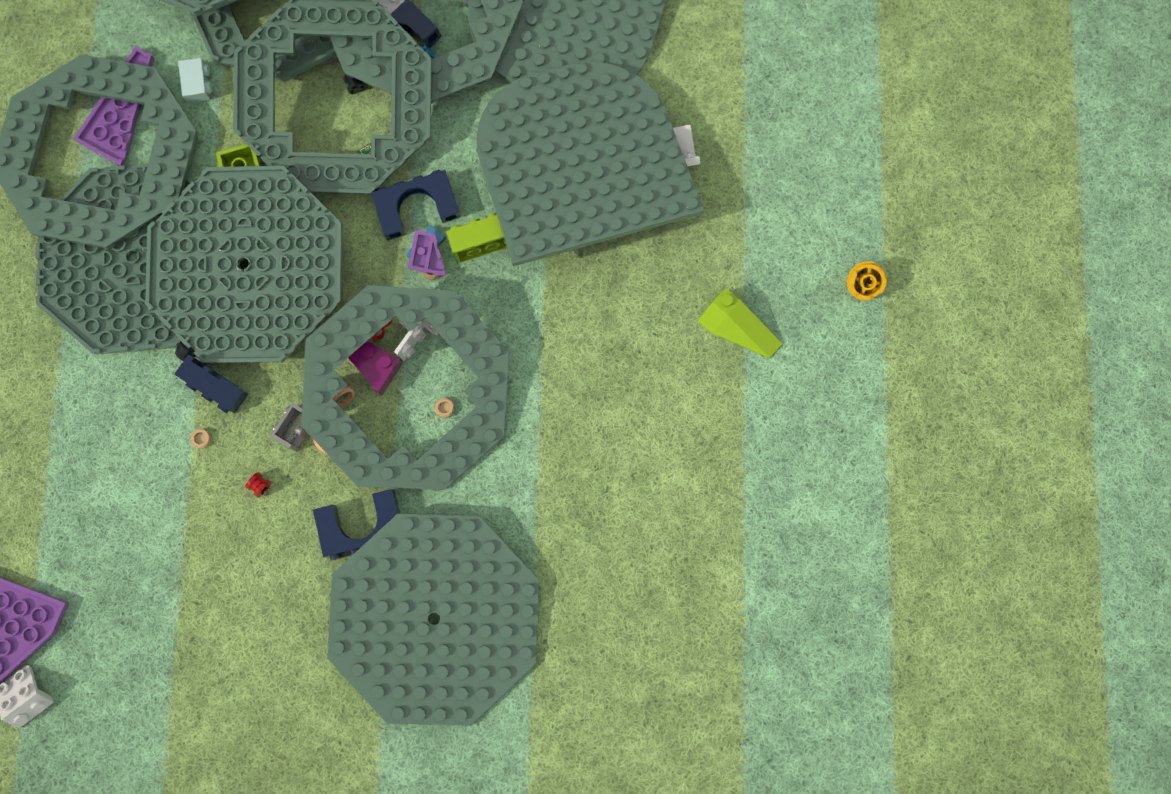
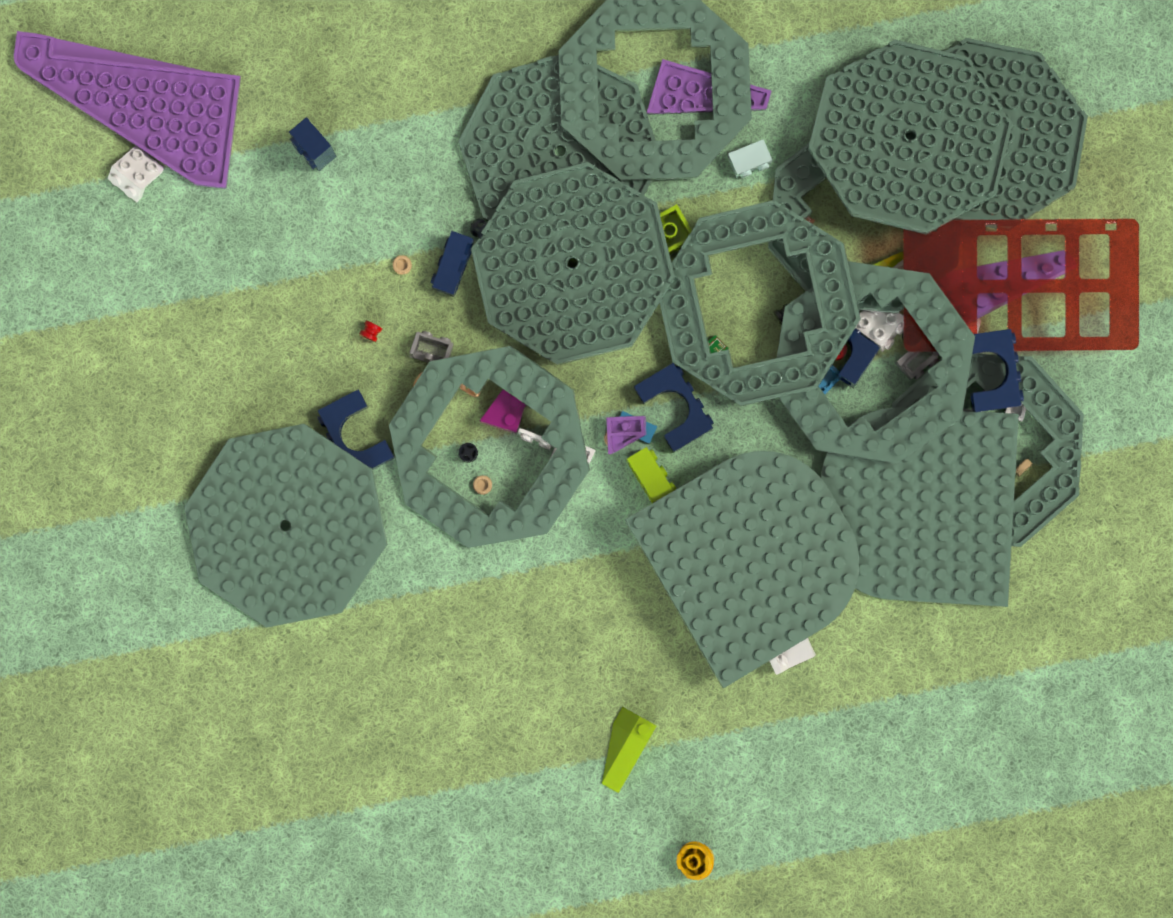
camera: 75 degrees right, 5 degrees up
(43, 498) = (311, 145): none -> dark blue brick
(406, 411) = (468, 449): none -> black wheel

